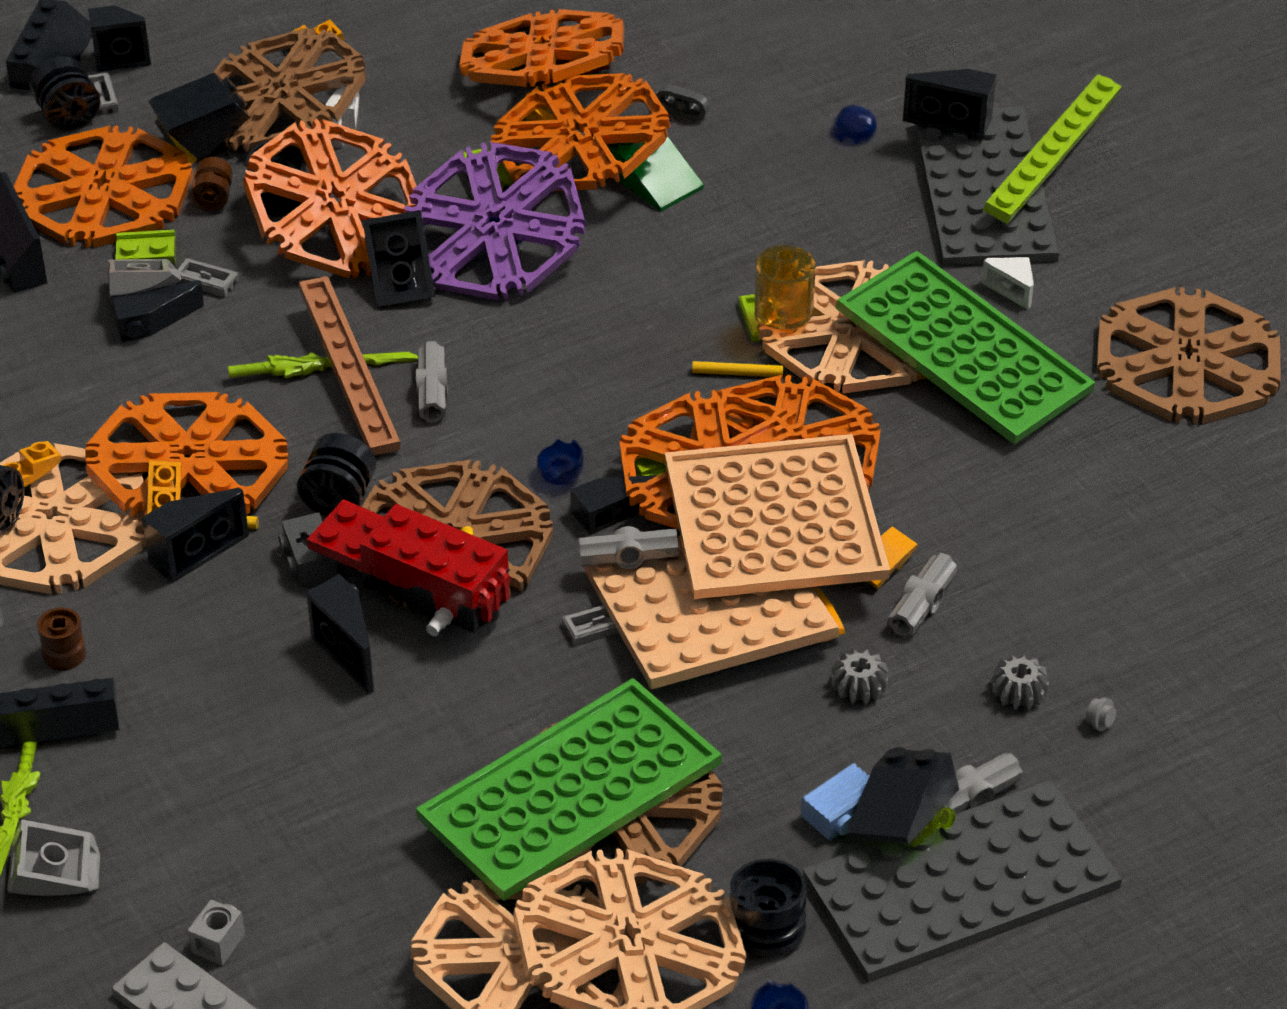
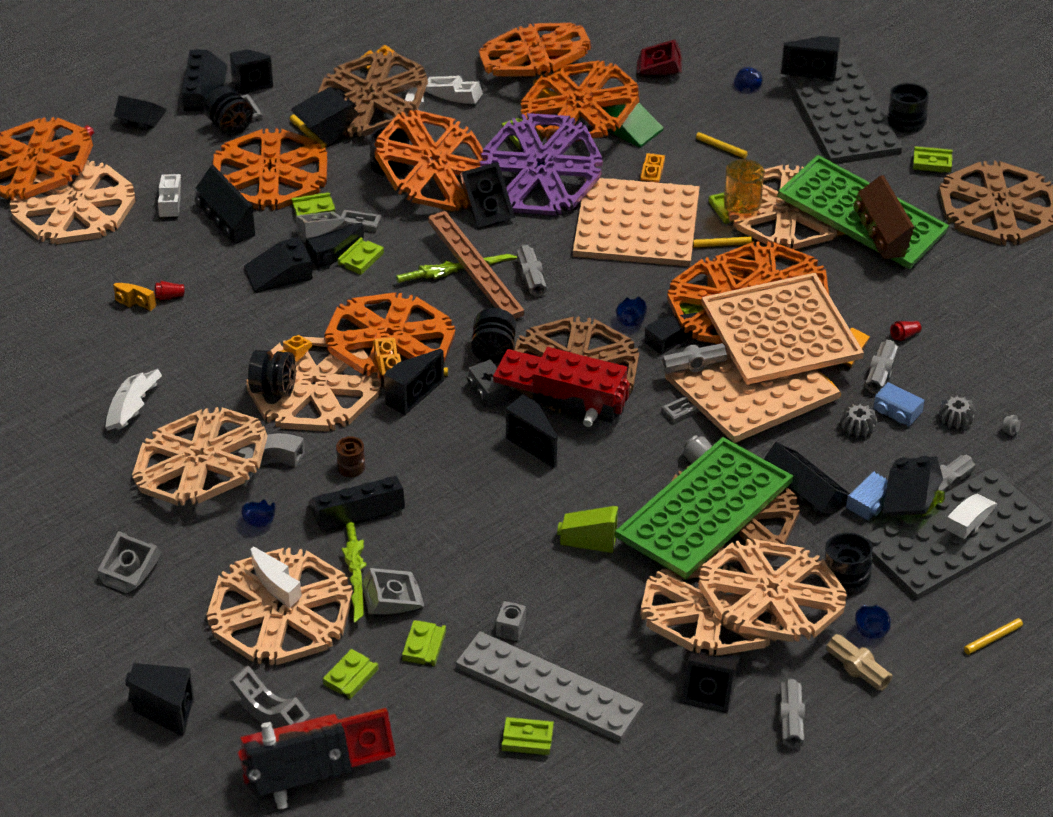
camera: 10 degrees left, 0 degrees up
(62, 333) = (280, 266): none -> black slope
(75, 949) = (423, 643): none -> lime plate
(189, 330) = (361, 256): none -> lime plate
(212, 183) = (345, 159): reddish brown wheel -> none
(383, 800) = (590, 529): none -> lime slope
(408, 95) = (454, 89): none -> white slope
(589, 688) = (695, 448): none -> light grey head
(618, 325) = (637, 222): none -> light nougat plate
(668, 244) = (652, 168): none -> light orange slope
(683, 102) = (637, 75): dark grey plate -> none
(732, 81) = (660, 60): none -> dark red slope
(750, 762) = (808, 480): none -> black slope
(783, 220) = (721, 145): none -> yellow bar
(930, 658) = (898, 404): none -> light blue brick
(976, 539) = (903, 329): none -> red cone
(985, 361) = (884, 218): none -> reddish brown slope
(985, 854) = (969, 515): none -> white slope
(1010, 278) = (877, 165): white slope -> none
(1052, 149) = (880, 81): lime plate -> none
(1083, 190) = (908, 106): none -> black wheel
(1101, 276) = (932, 159): none -> lime plate

